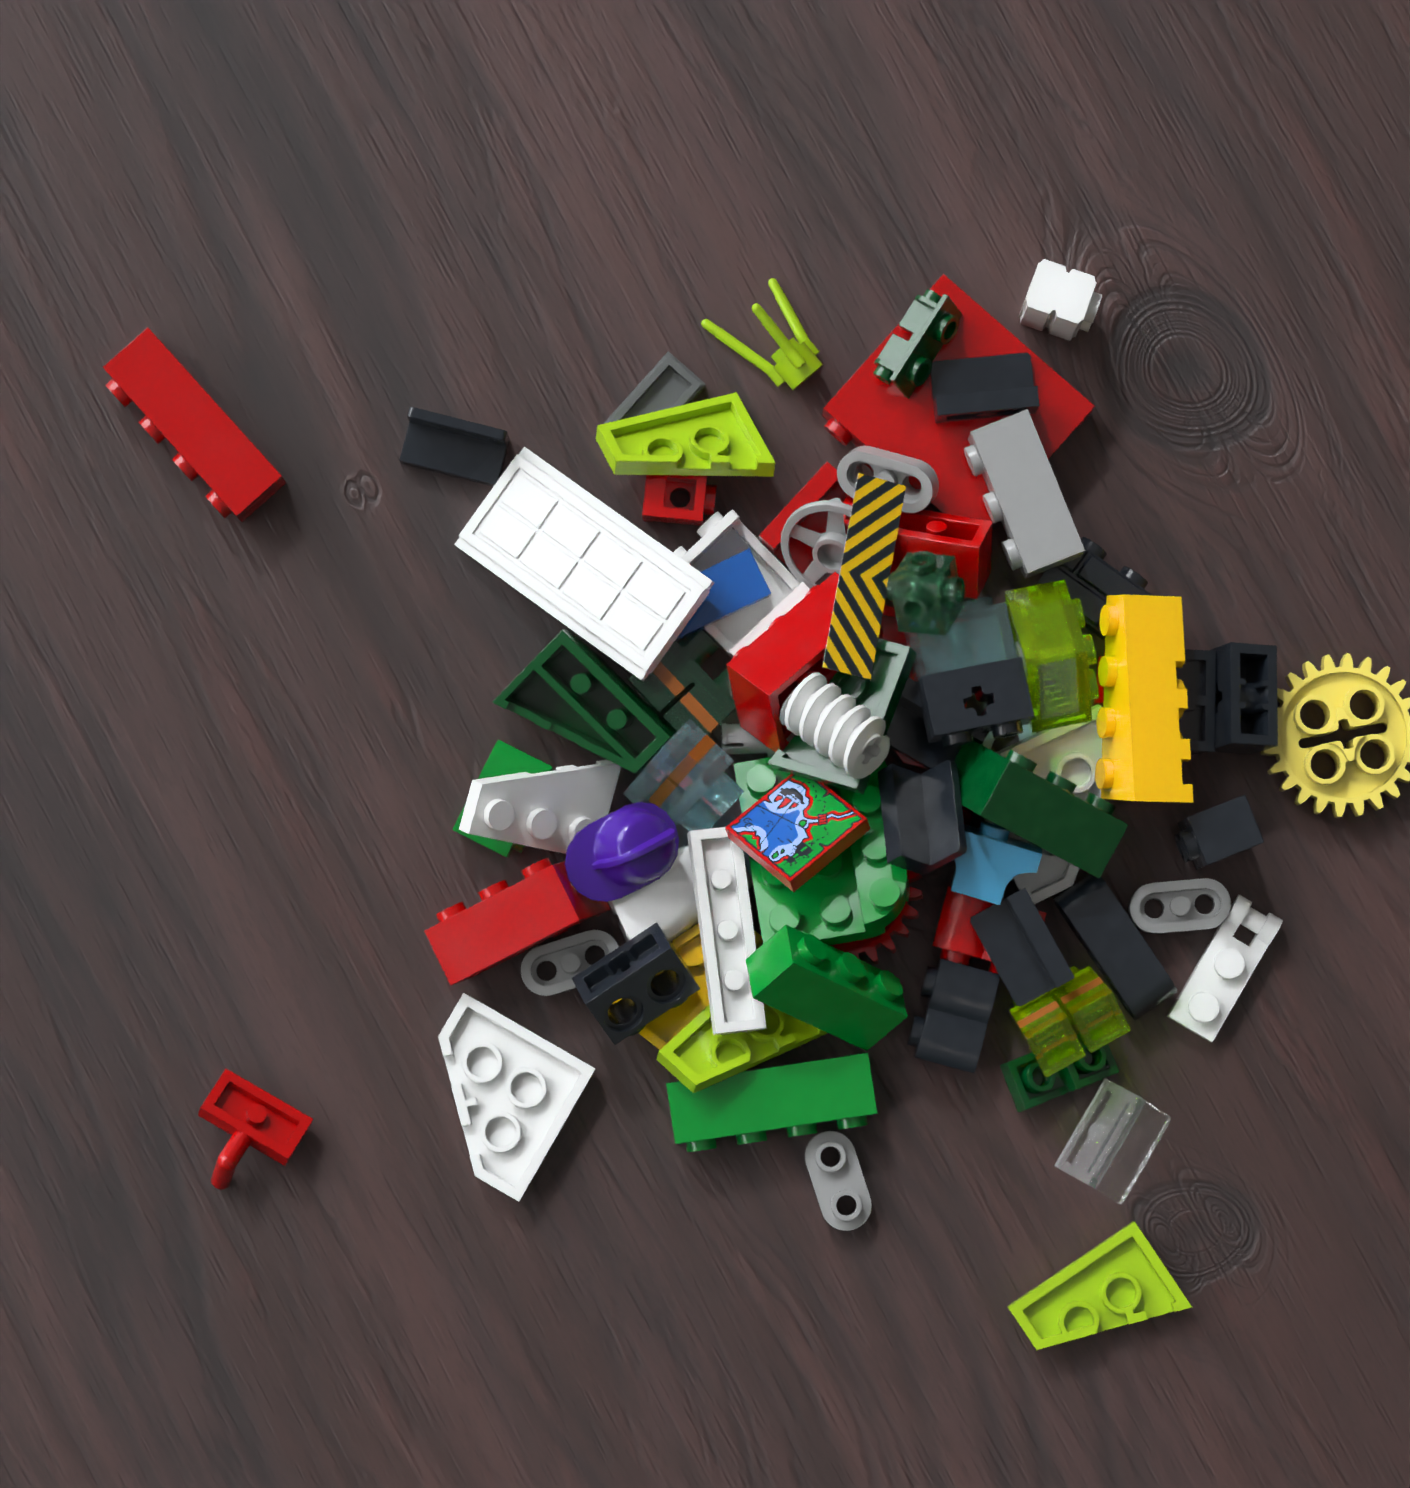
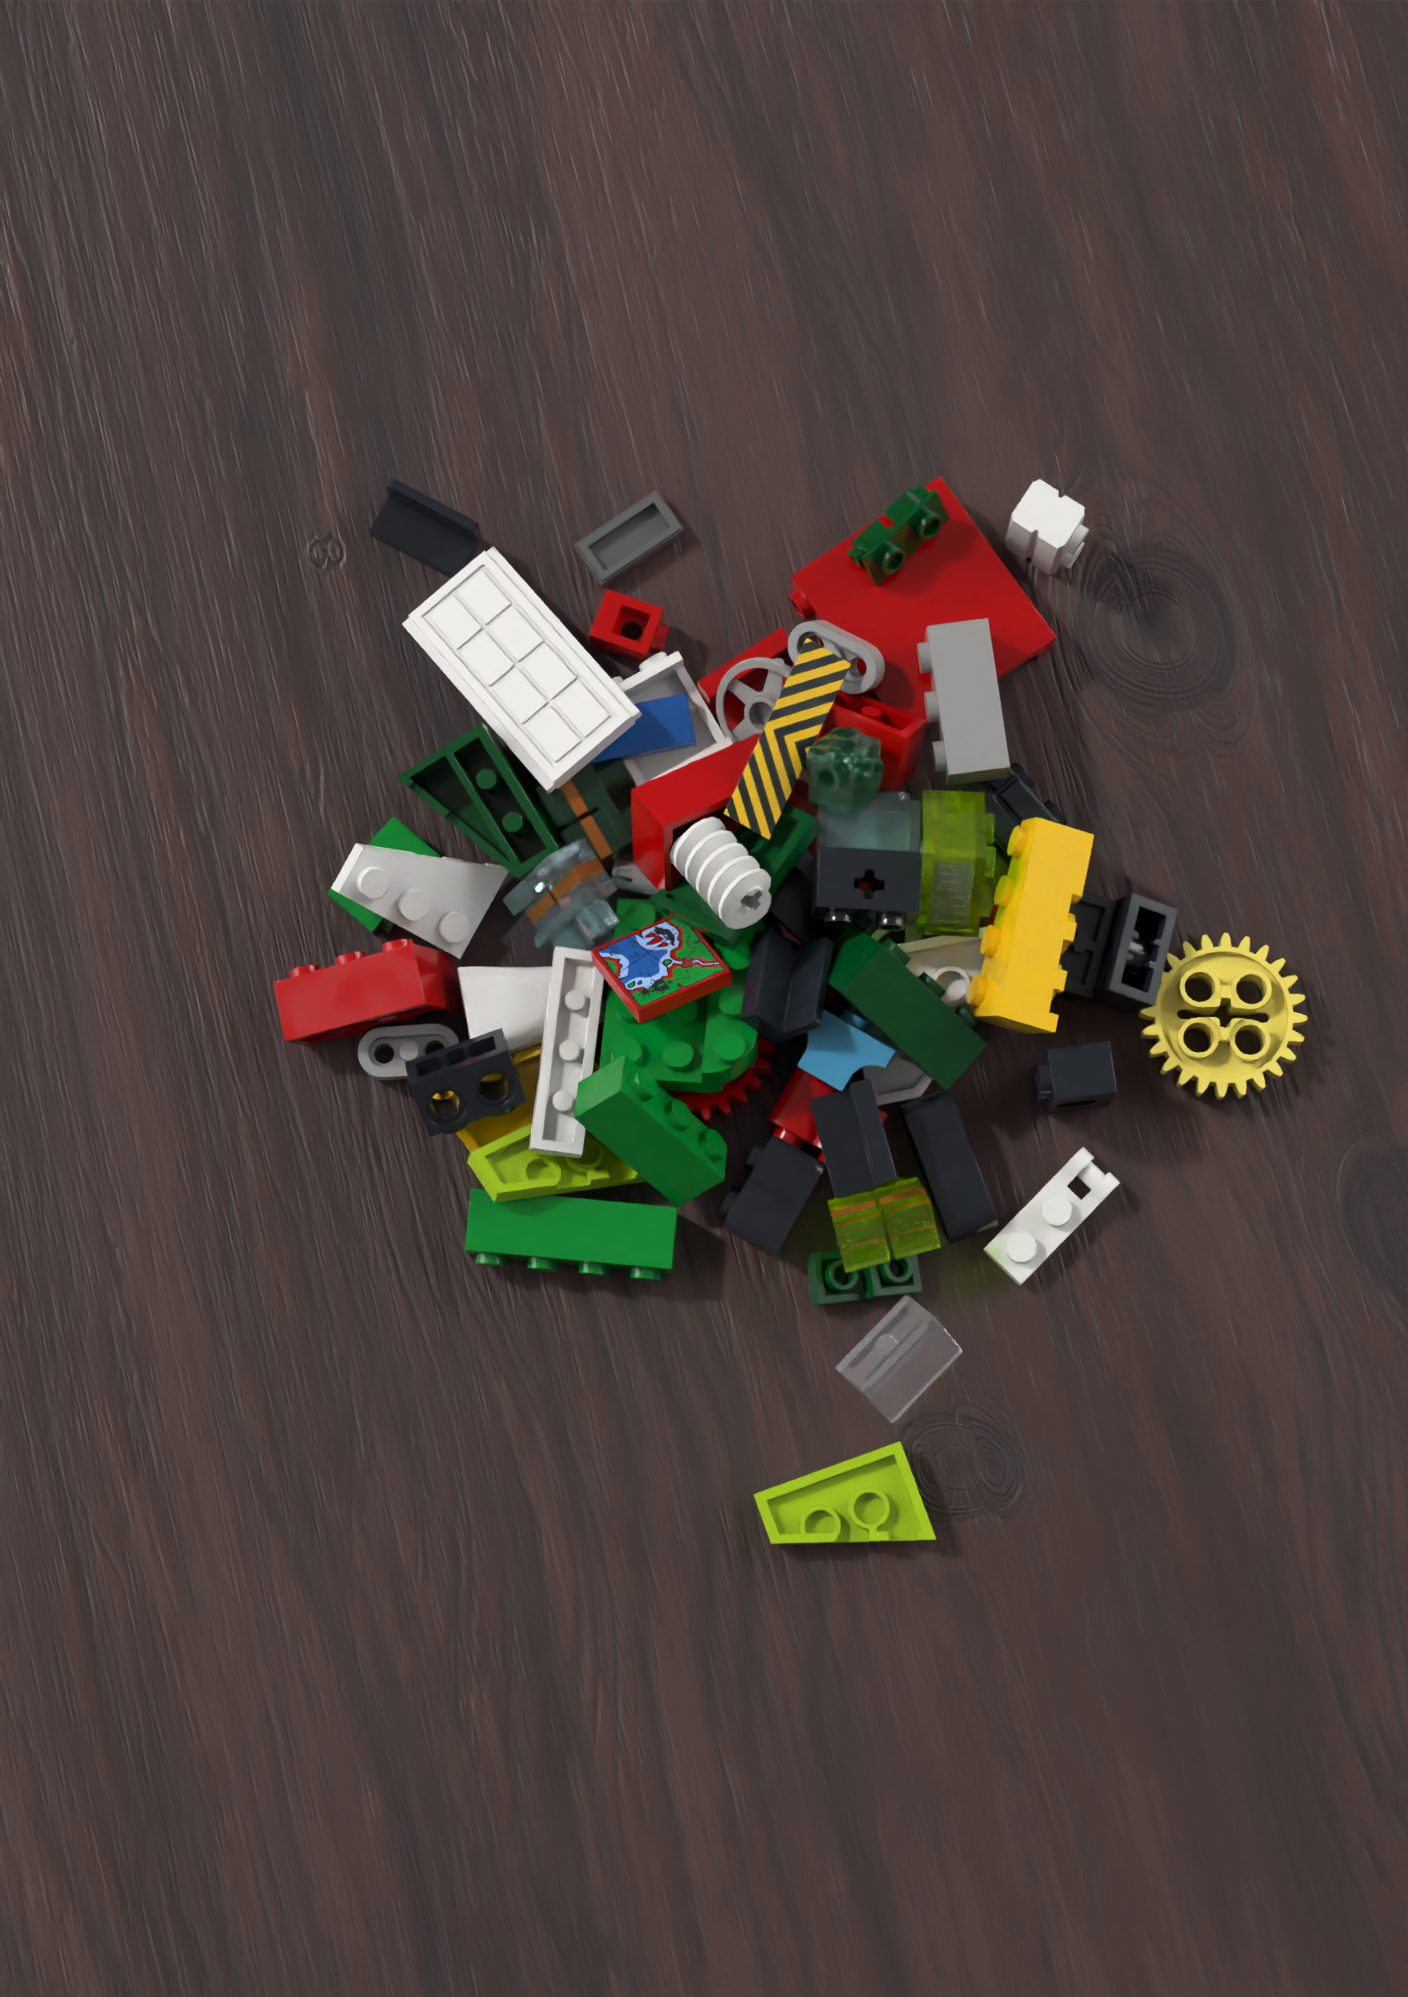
camera: 15 degrees right, 5 degrees down
(194, 425) = (180, 450): red brick -> none
(252, 1120) = (57, 1126): red plate -> none
(508, 1092) = (315, 1162): white plate -> none
(622, 852) = (485, 951): dark purple piece -> none
(688, 440) = (652, 575): lime wing -> none
(793, 359) = (775, 527): lime plant -> none
(838, 1180) = (617, 1329): light grey plate -> none
(983, 387) = (950, 591): black panel -> none
(1179, 906) = (1021, 1142): light grey plate -> none

